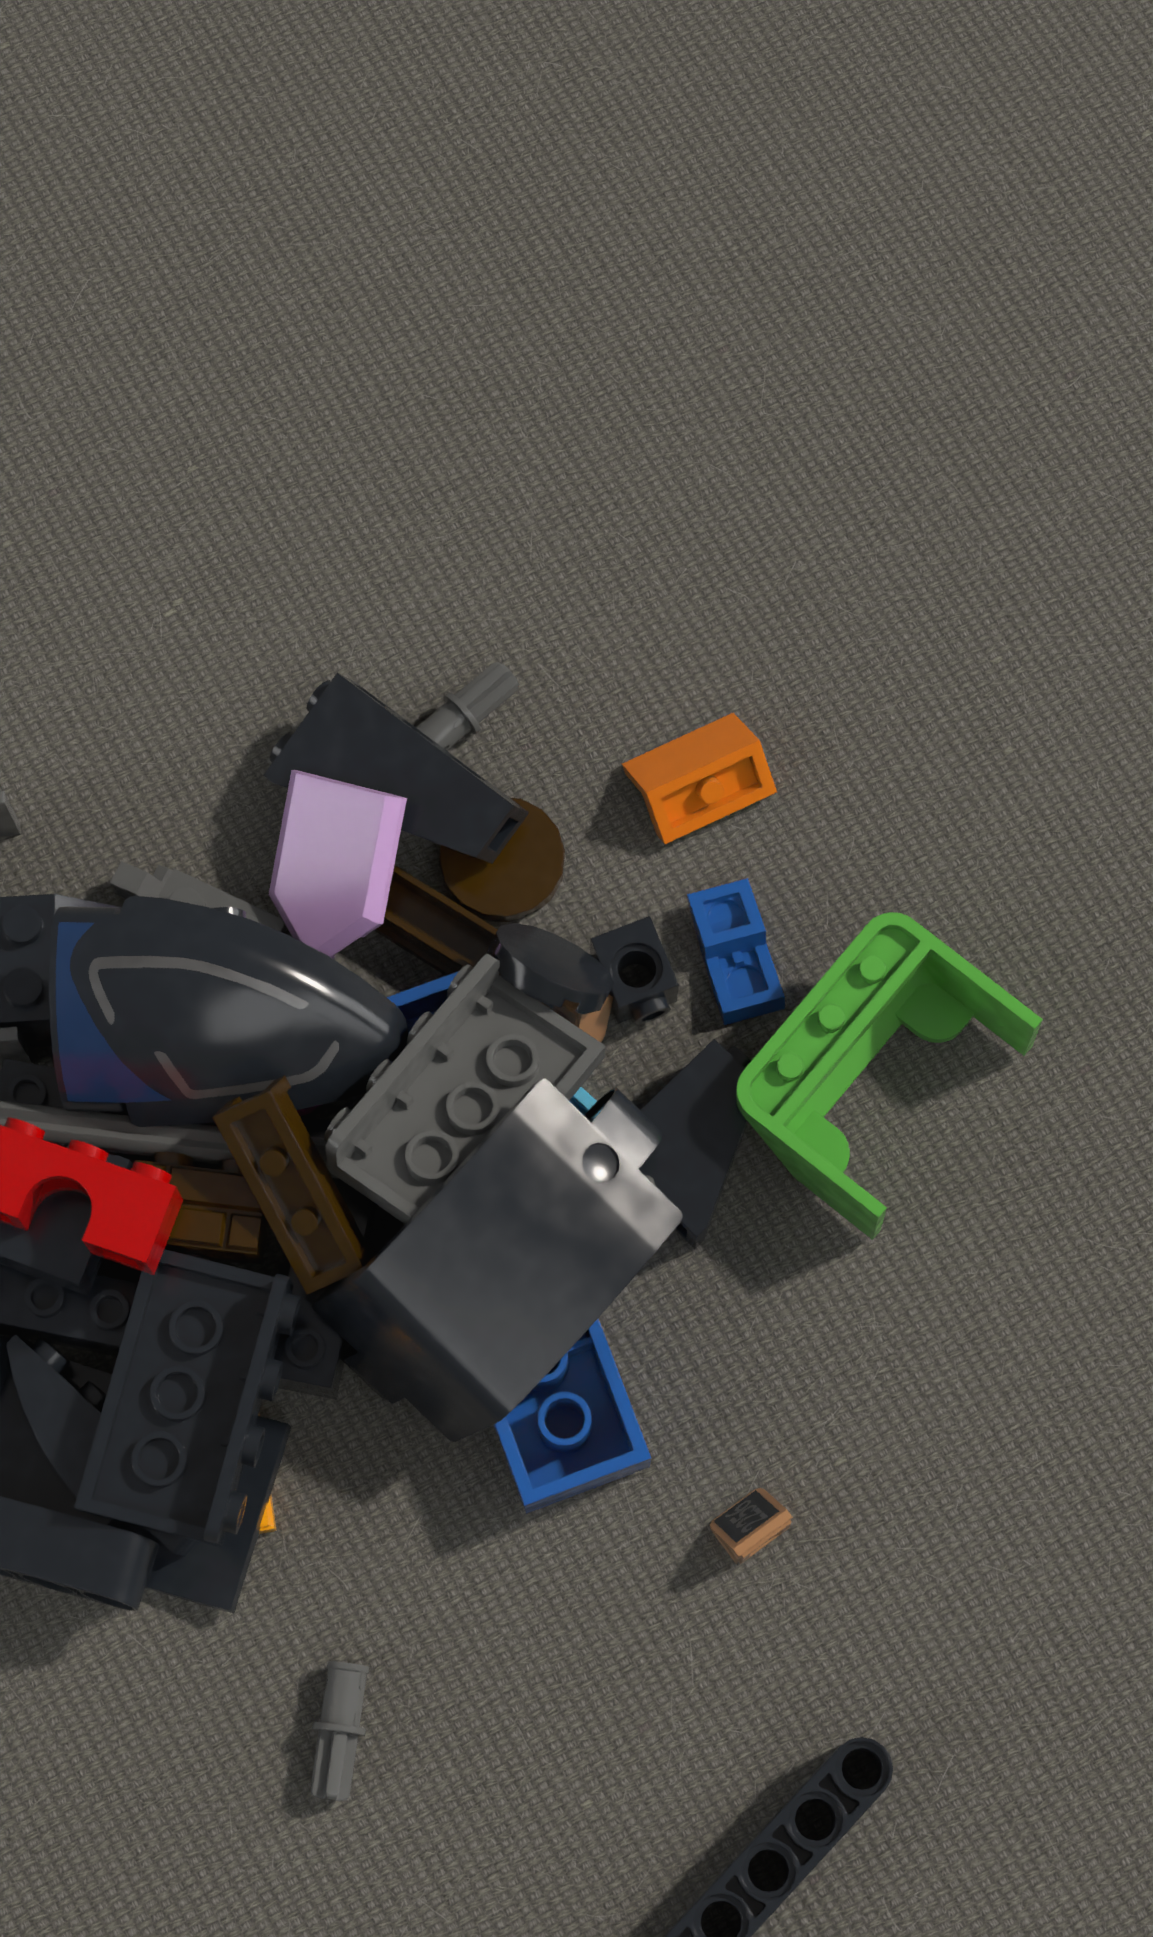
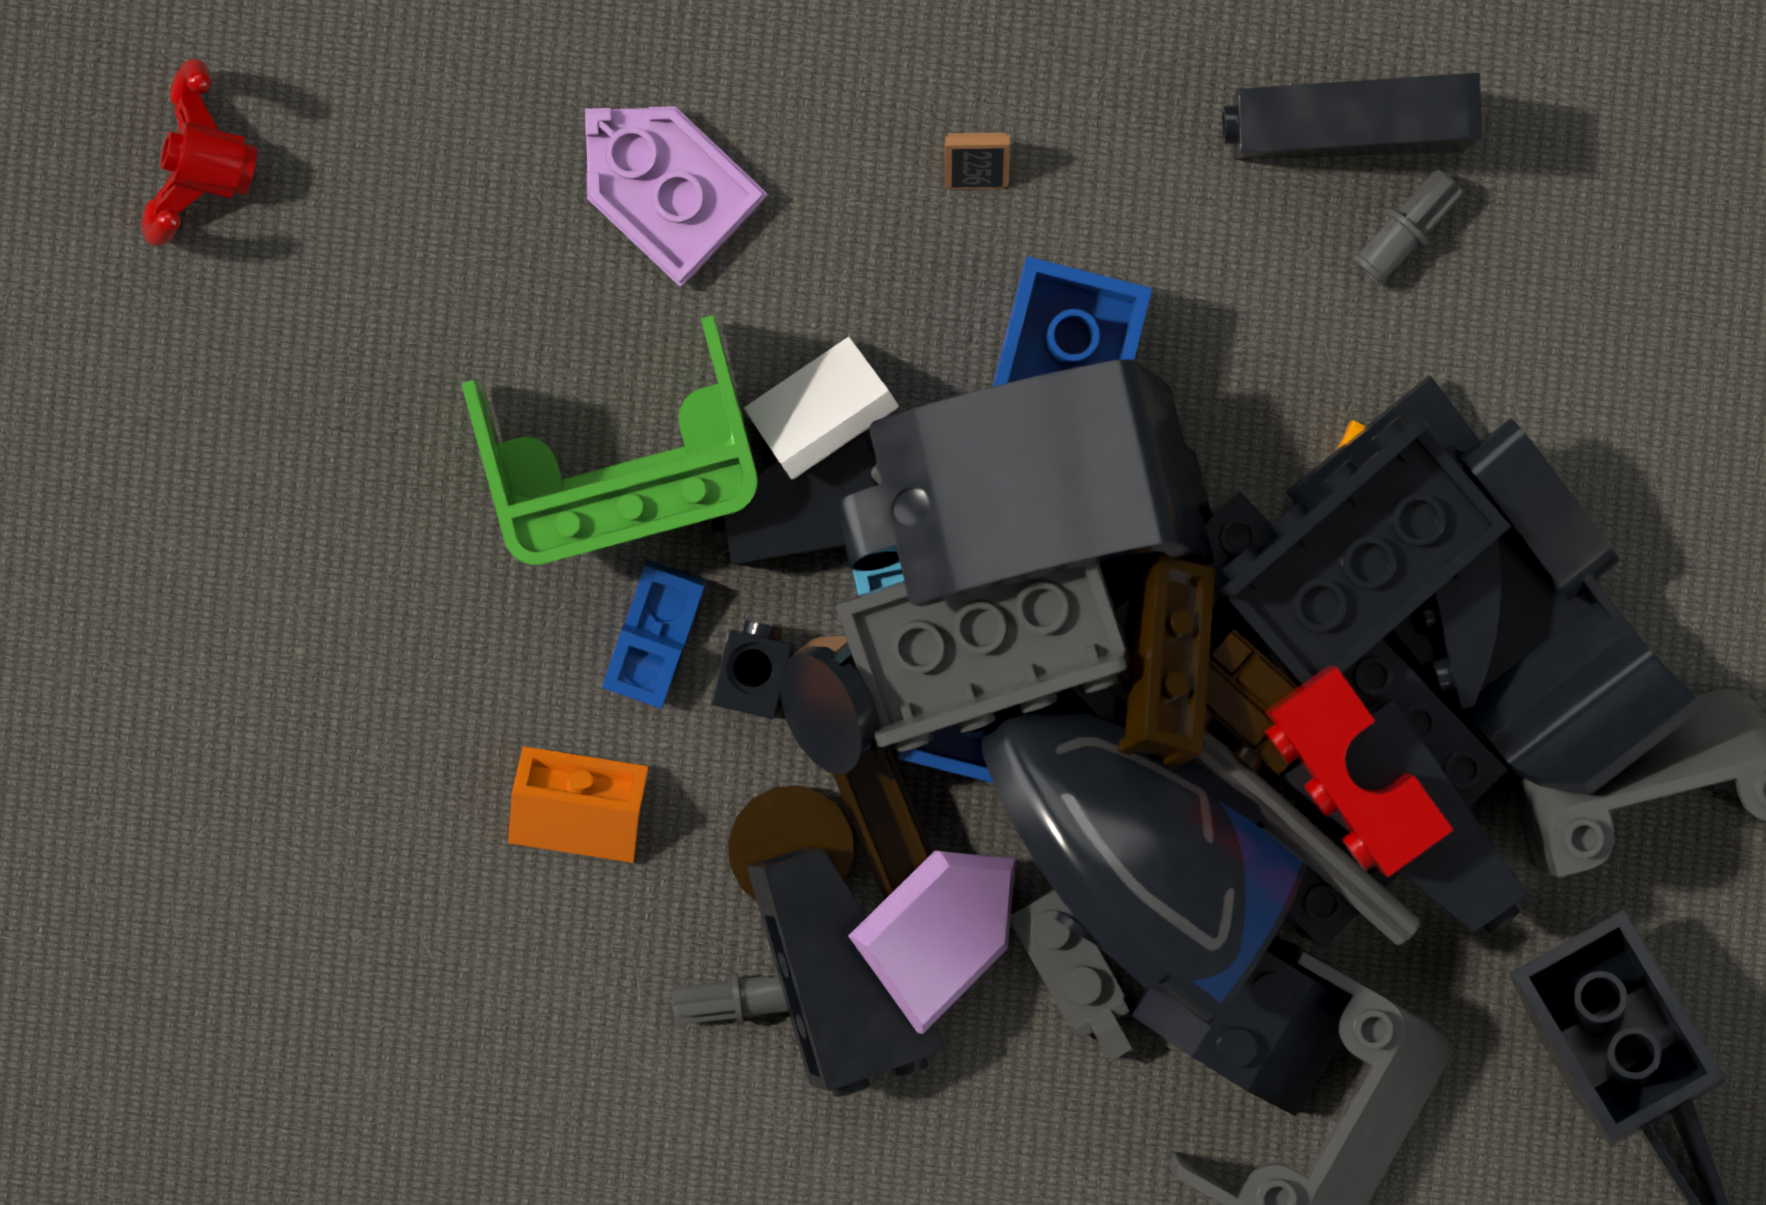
camera: 145 degrees left, 15 degrees up
(451, 1786) = (1355, 118): none -> black slope
(732, 1216) = (821, 408): none -> white tile
(994, 1320) = (665, 185): none -> lavender tile

